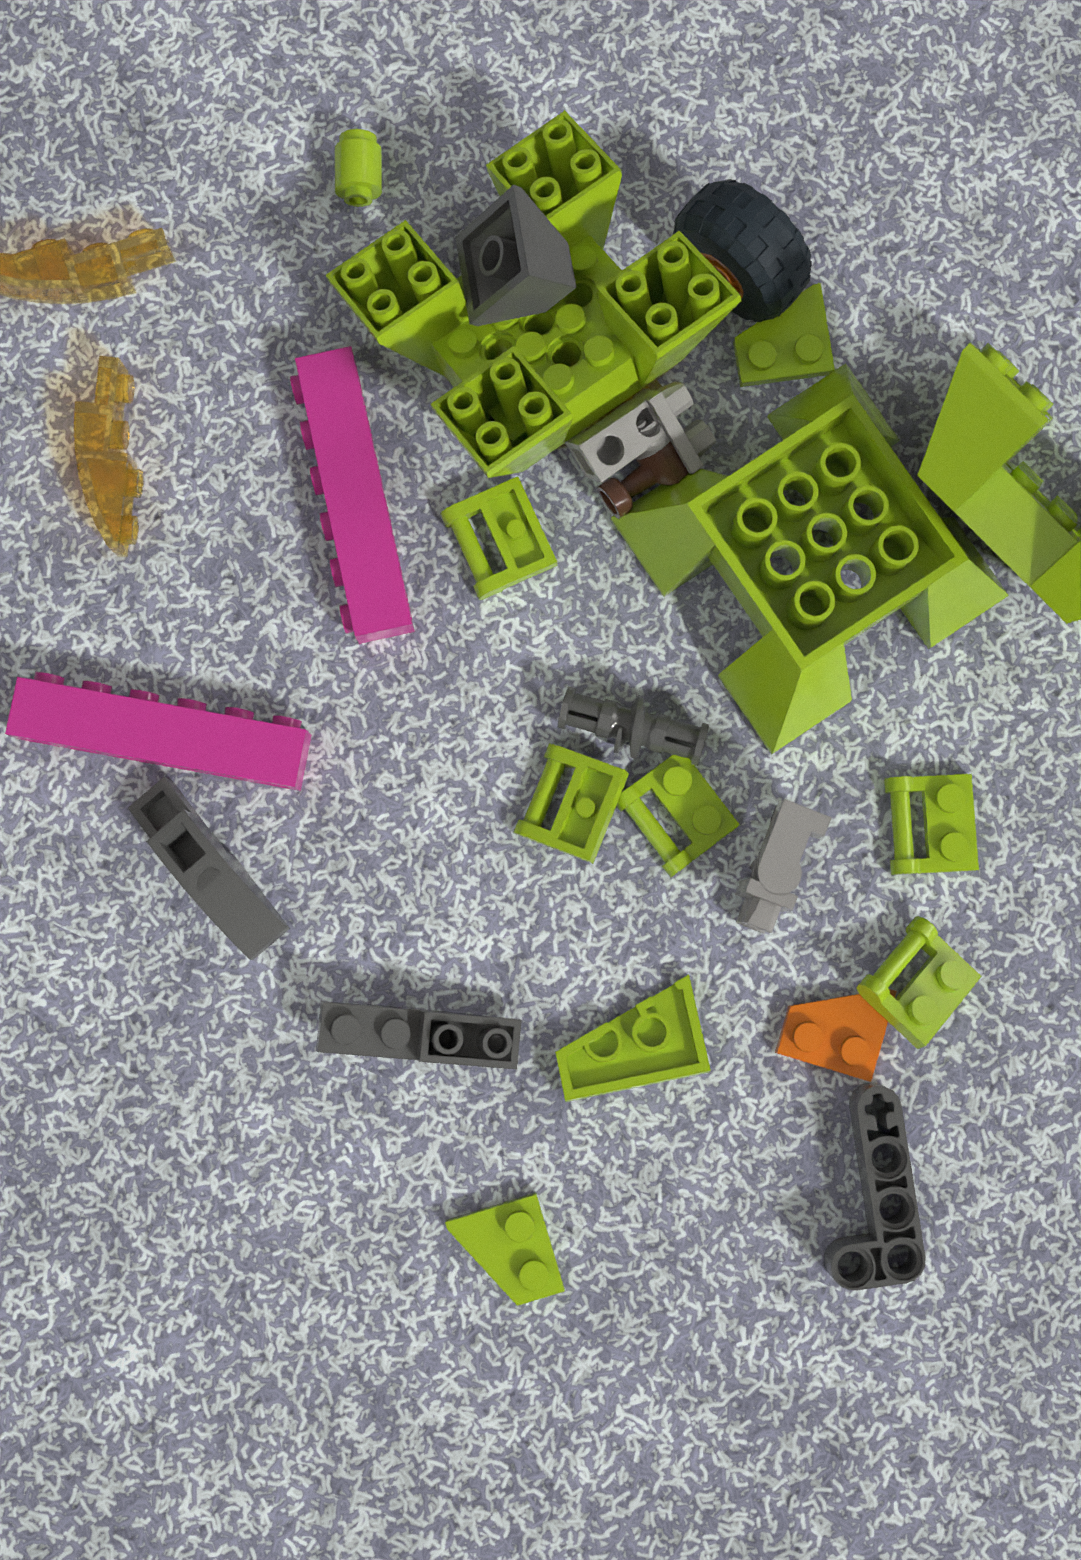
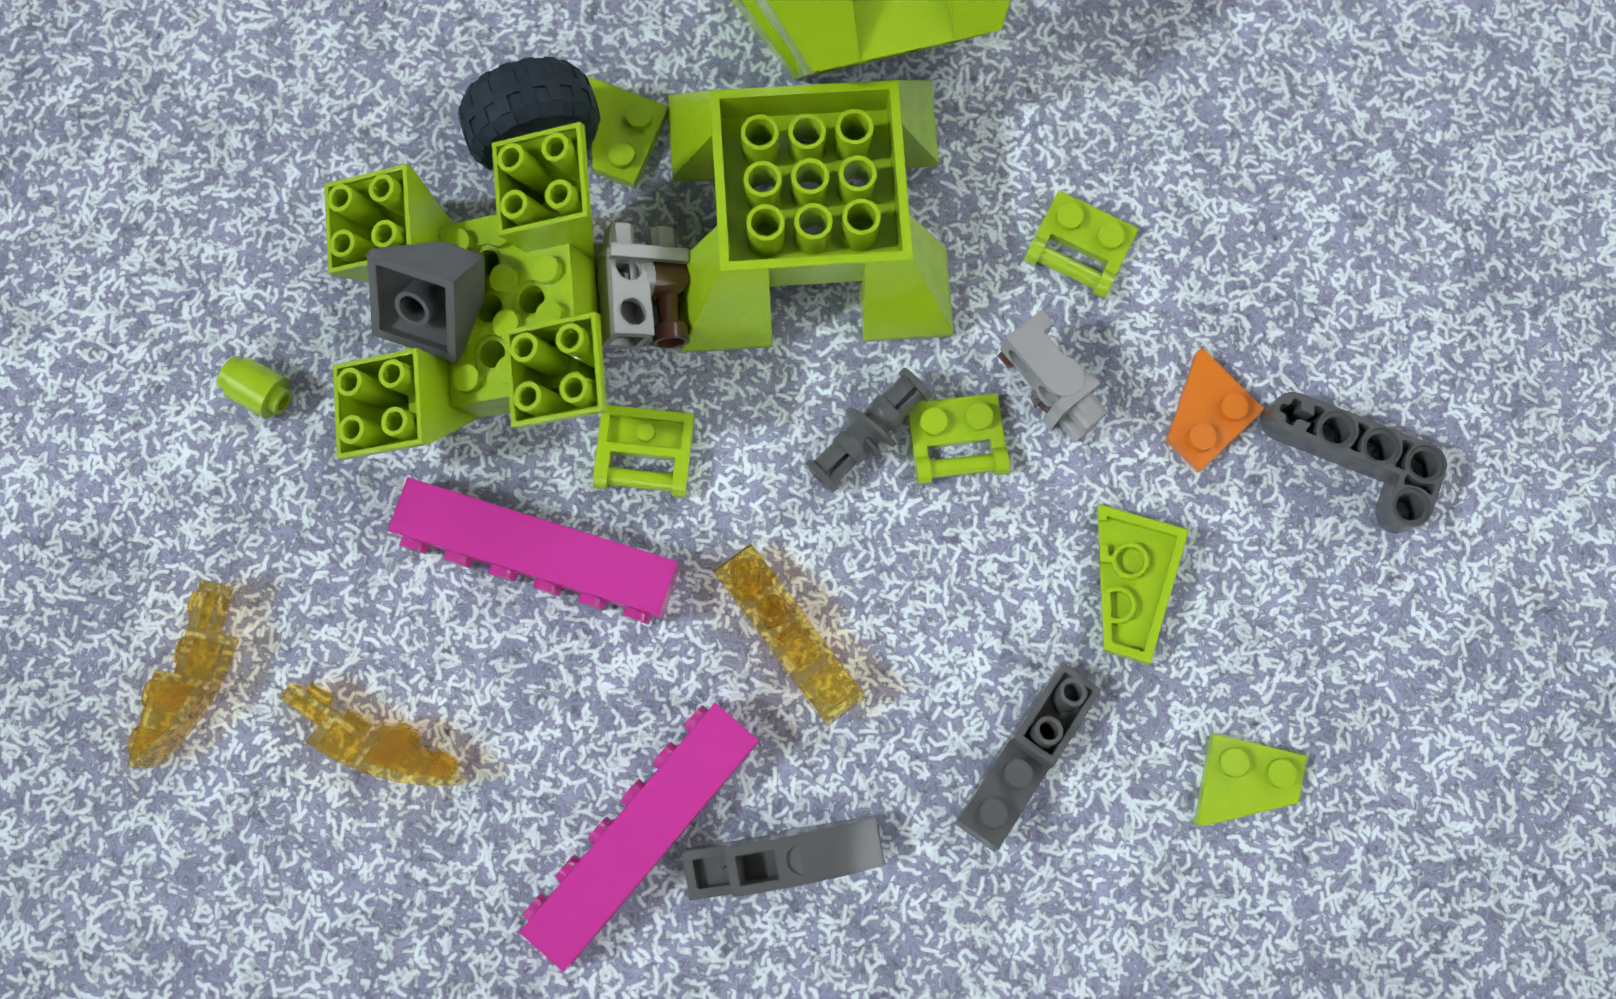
camera: 60 degrees left, 5 degrees down
(406, 761) = (789, 635): none -> clear yellow slope
(585, 806) = (913, 508): lime plate -> none
(929, 994) = (1217, 320): lime plate -> none

